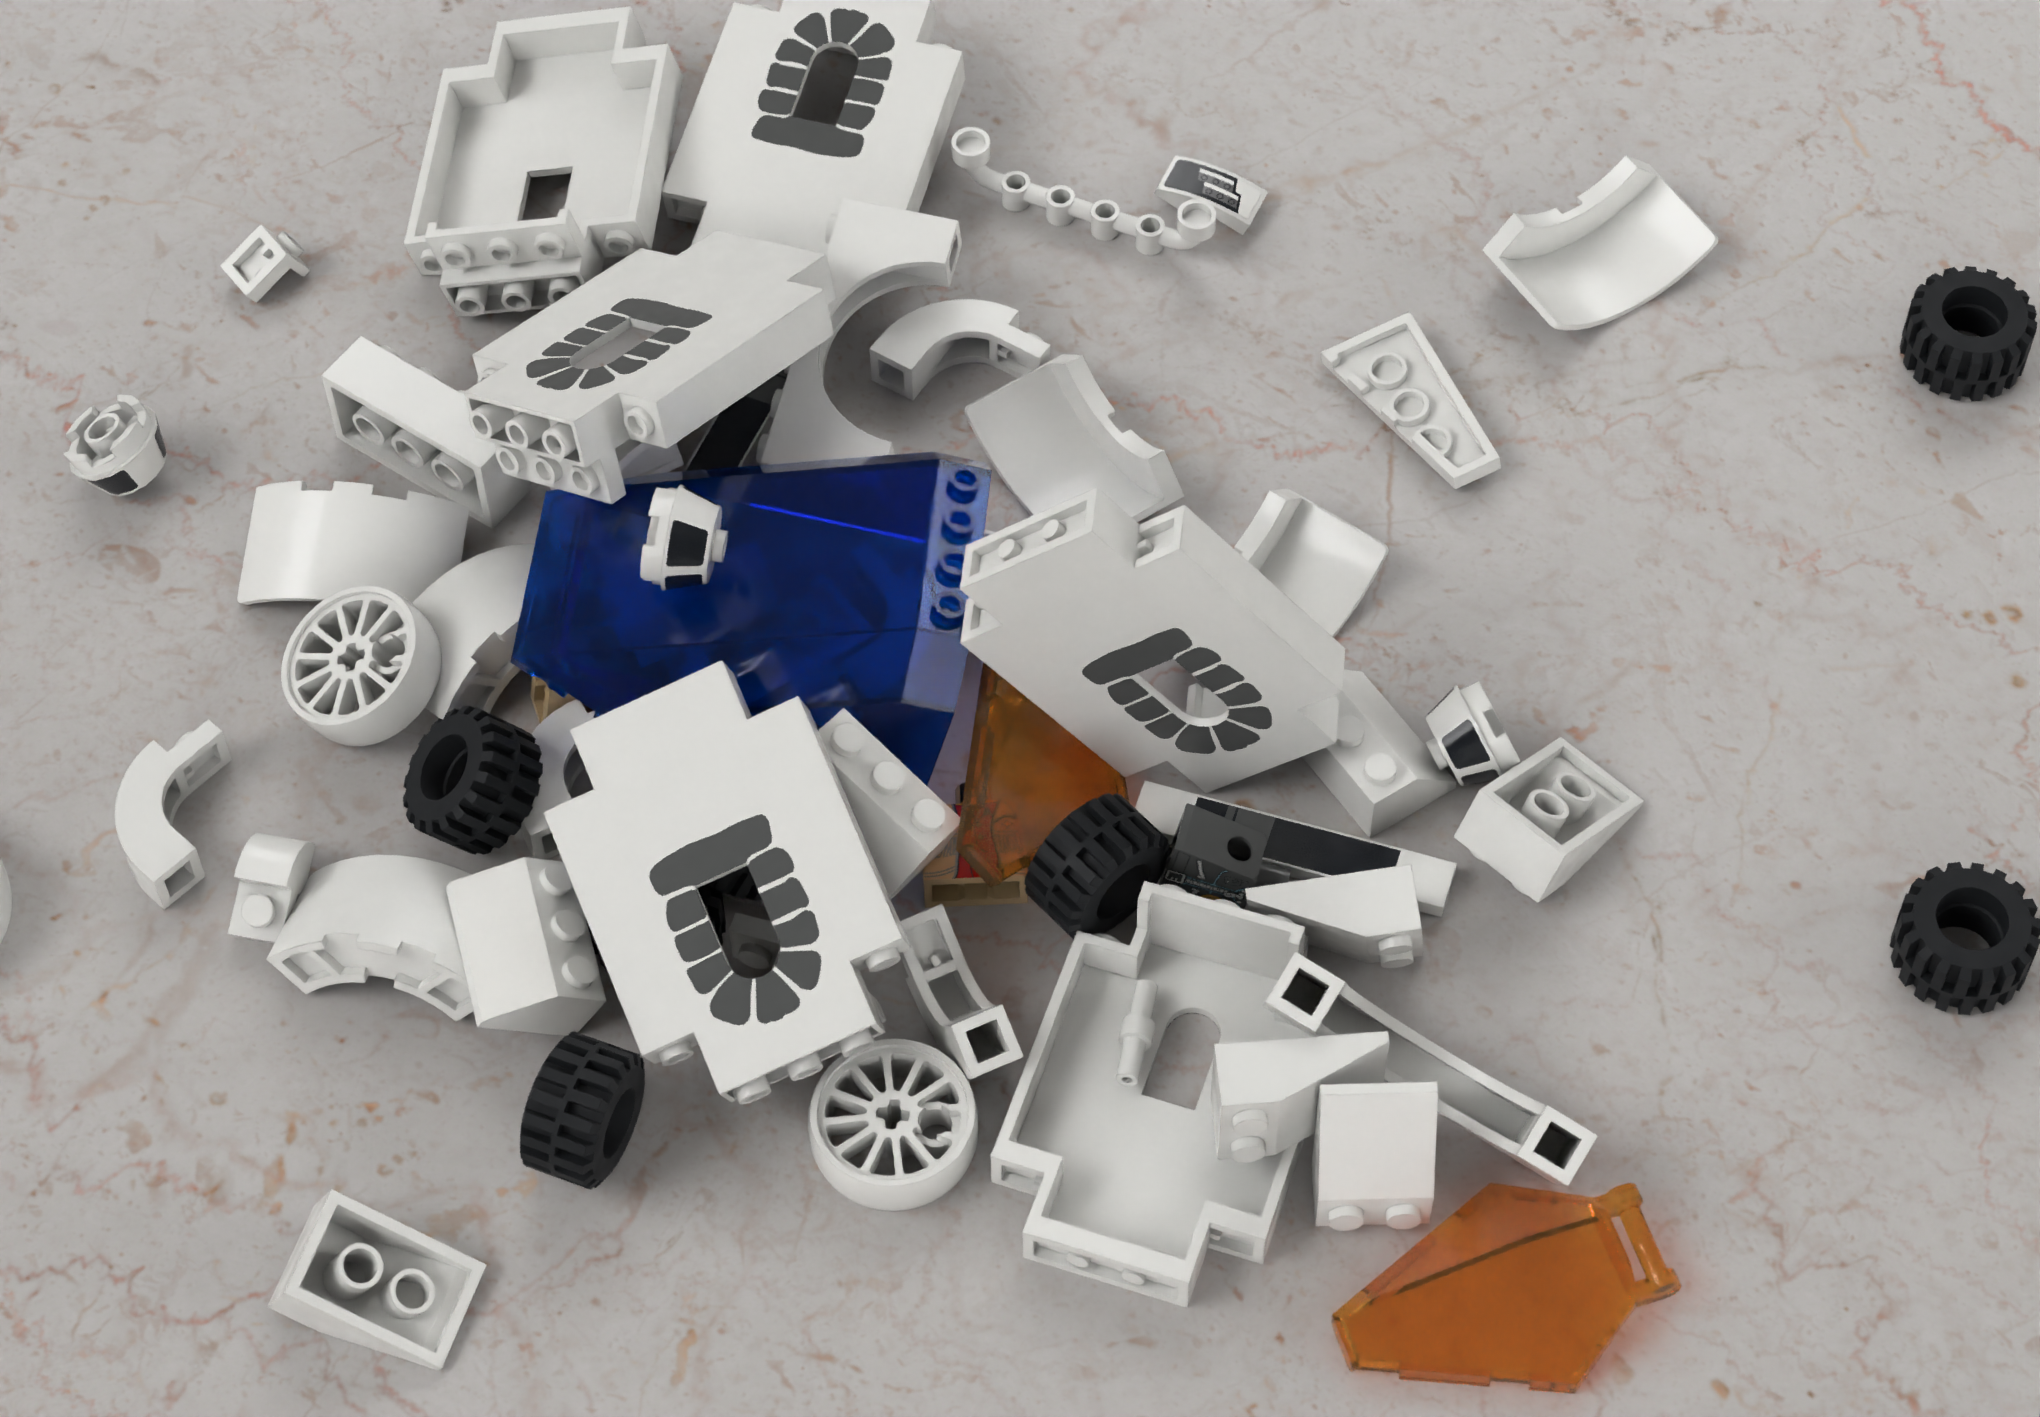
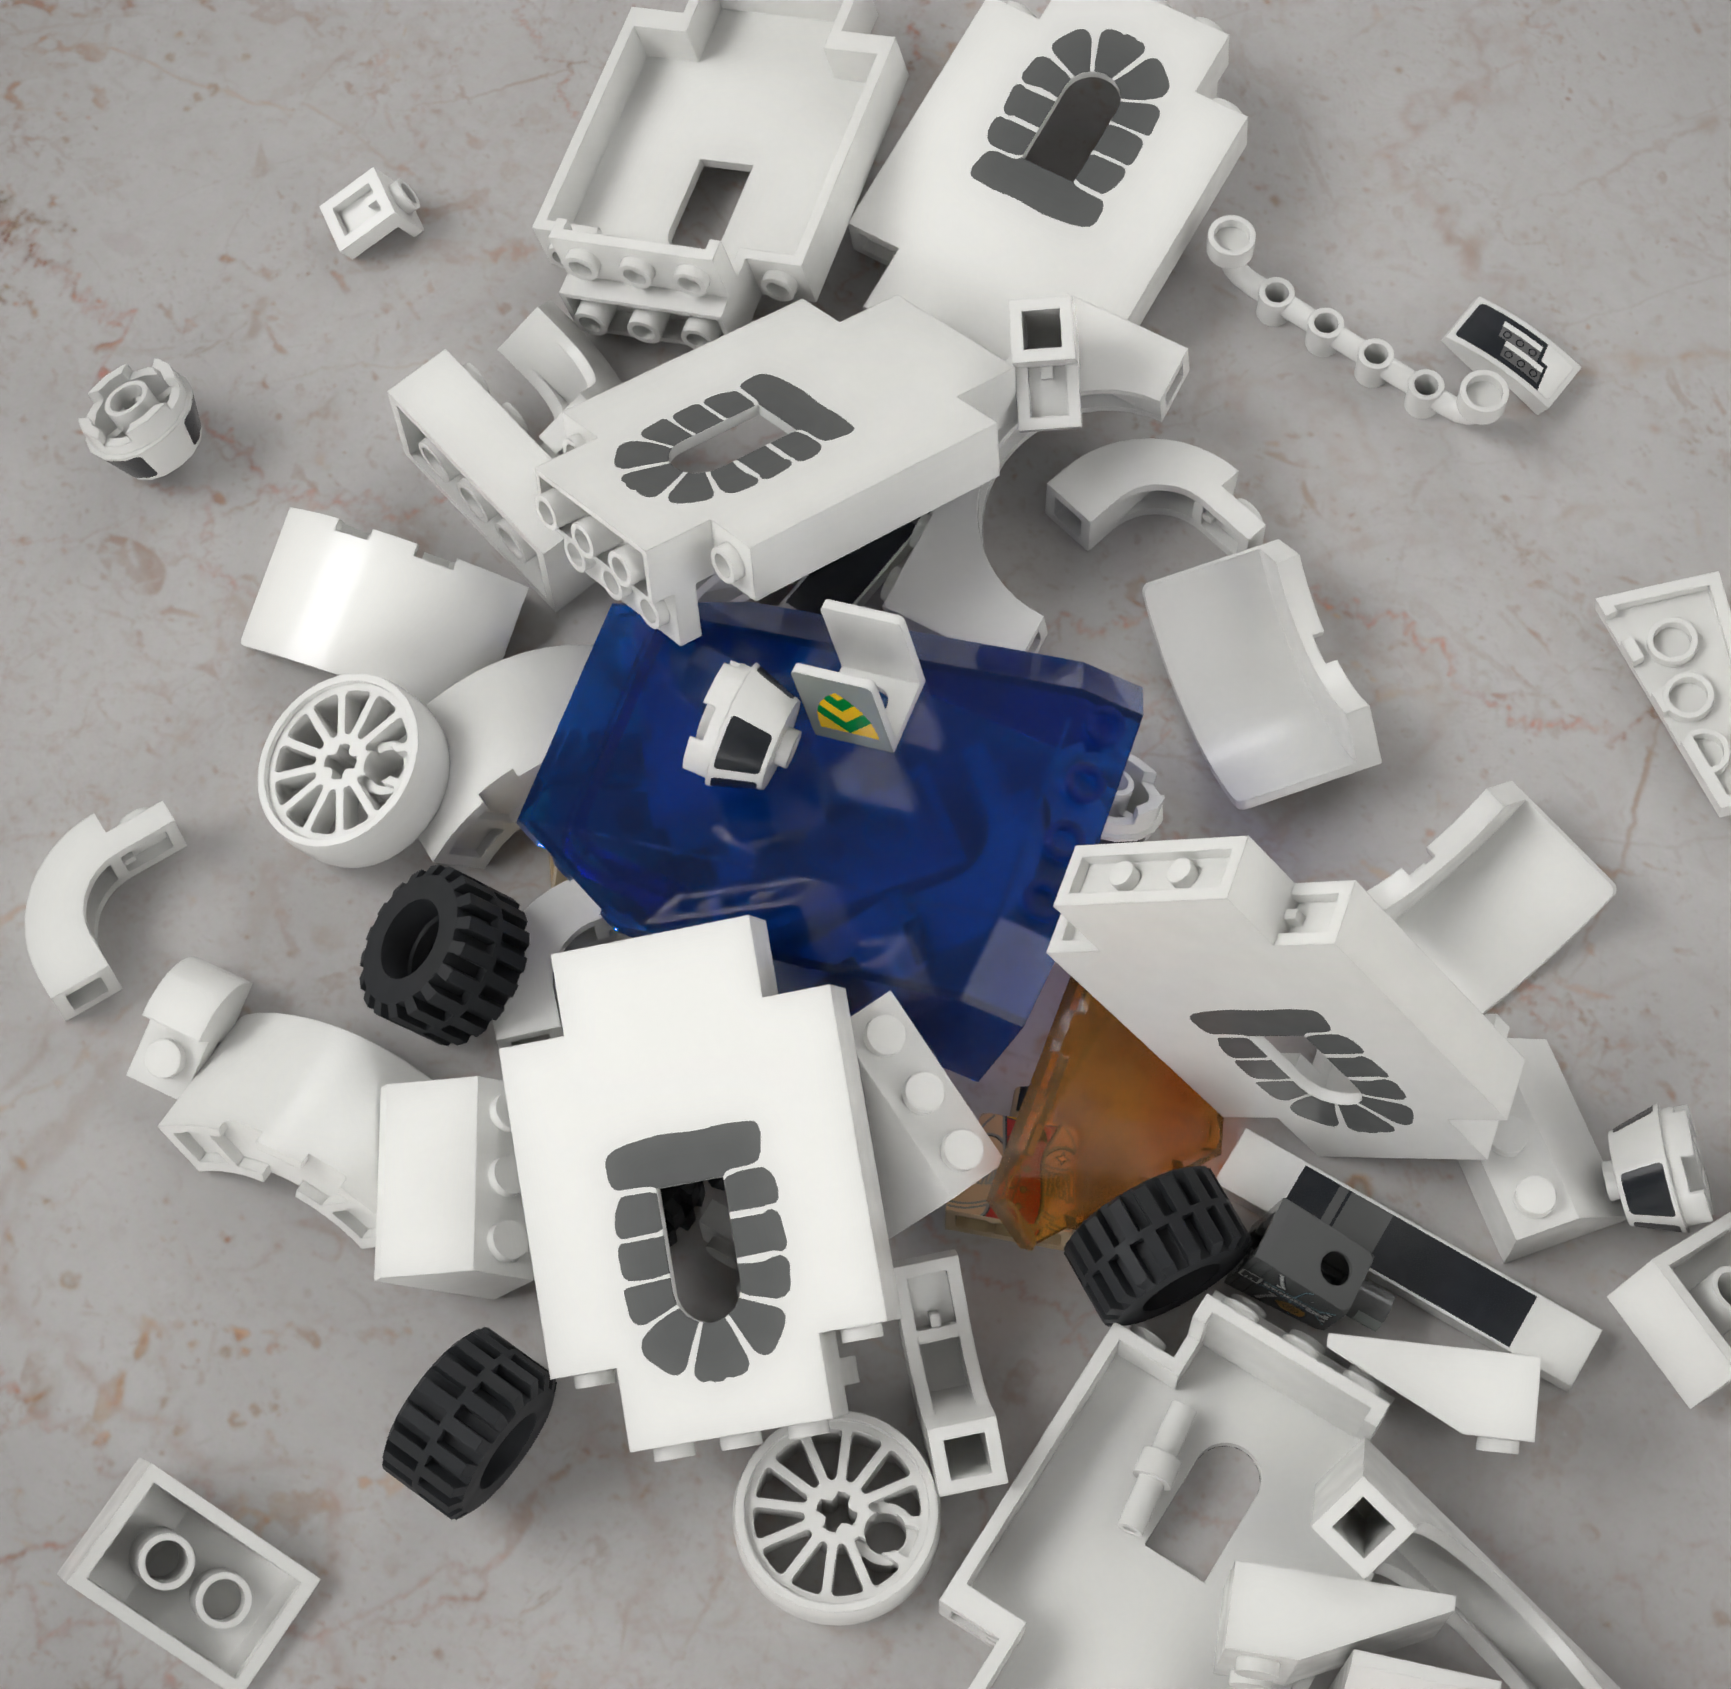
camera: 15 degrees right, 10 degrees up
(447, 338) = (558, 364): none -> white arch
(773, 482) = (874, 659): none -> white piece
(849, 246) = (1045, 363): none -> white brick

